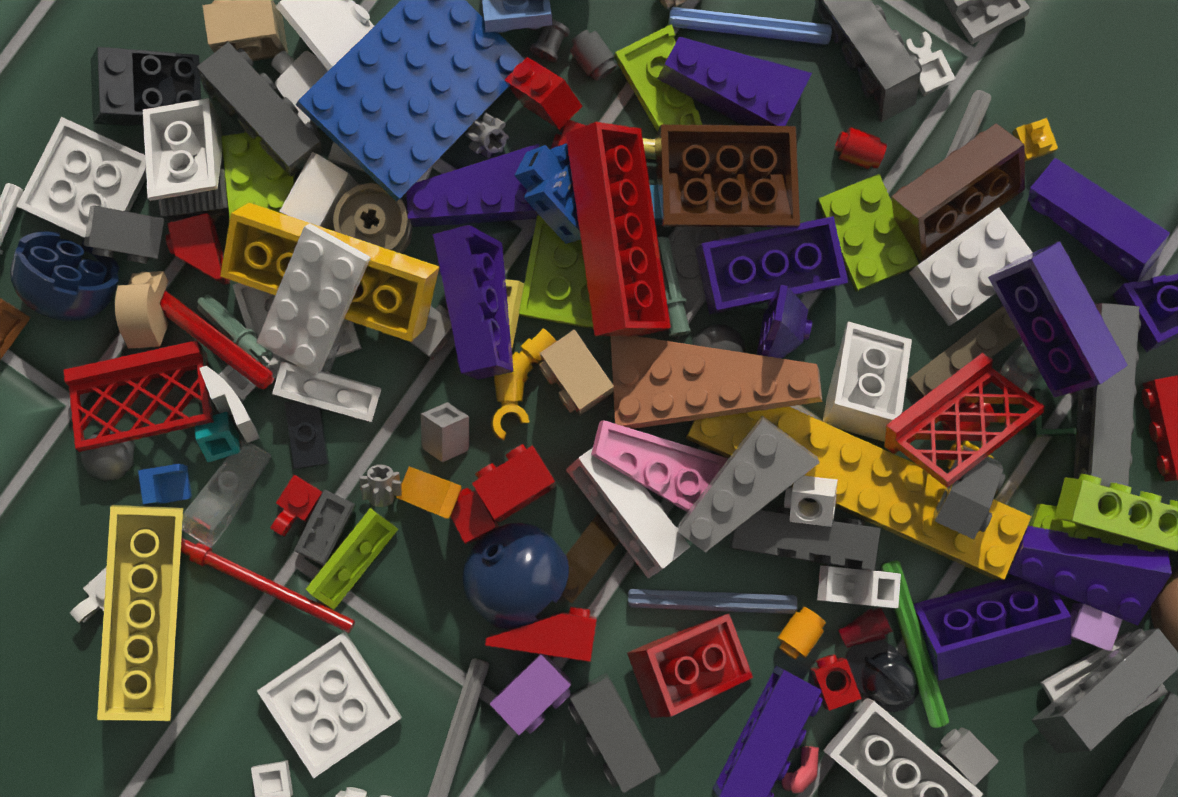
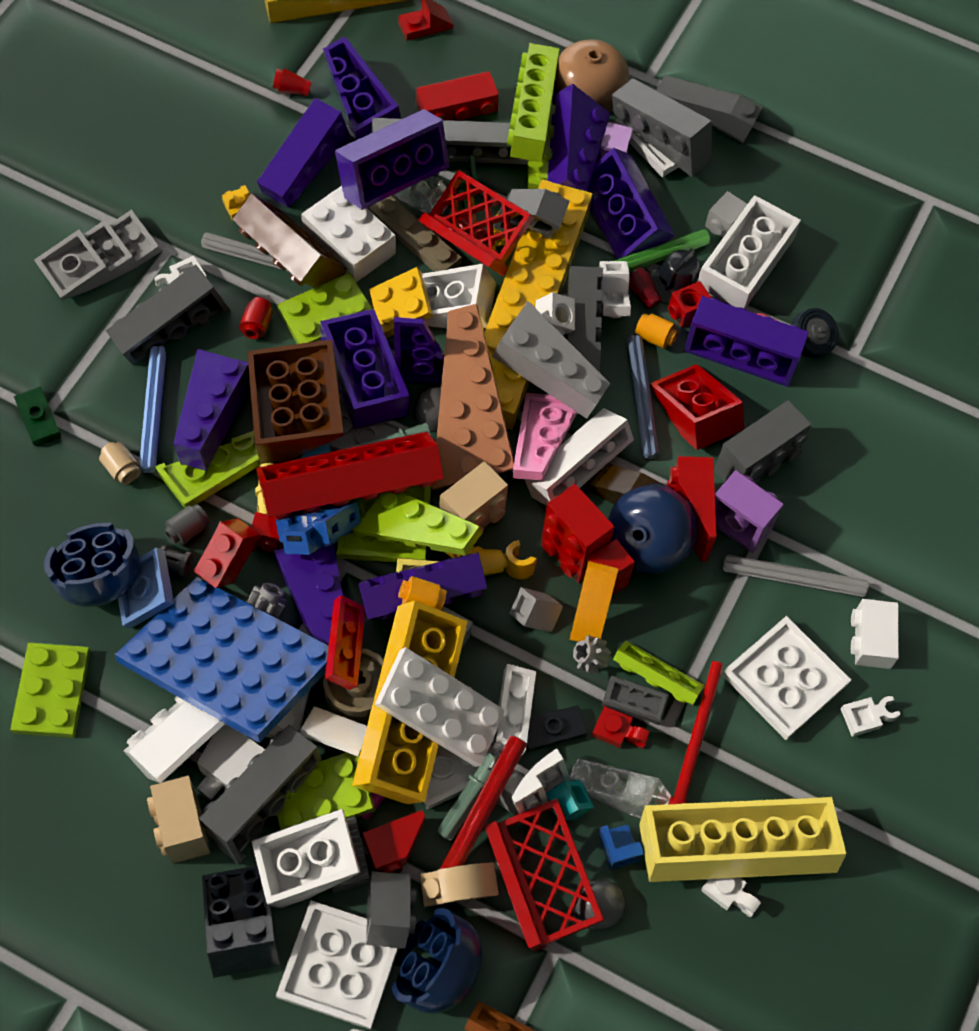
camera: 100 degrees left, 20 degrees down
(406, 207) = (345, 642): none -> red plate
(446, 294) = (422, 591): none -> light orange brick
(548, 306) = (417, 523): none -> lime wing
(866, 321) = (401, 297): none -> yellow plate

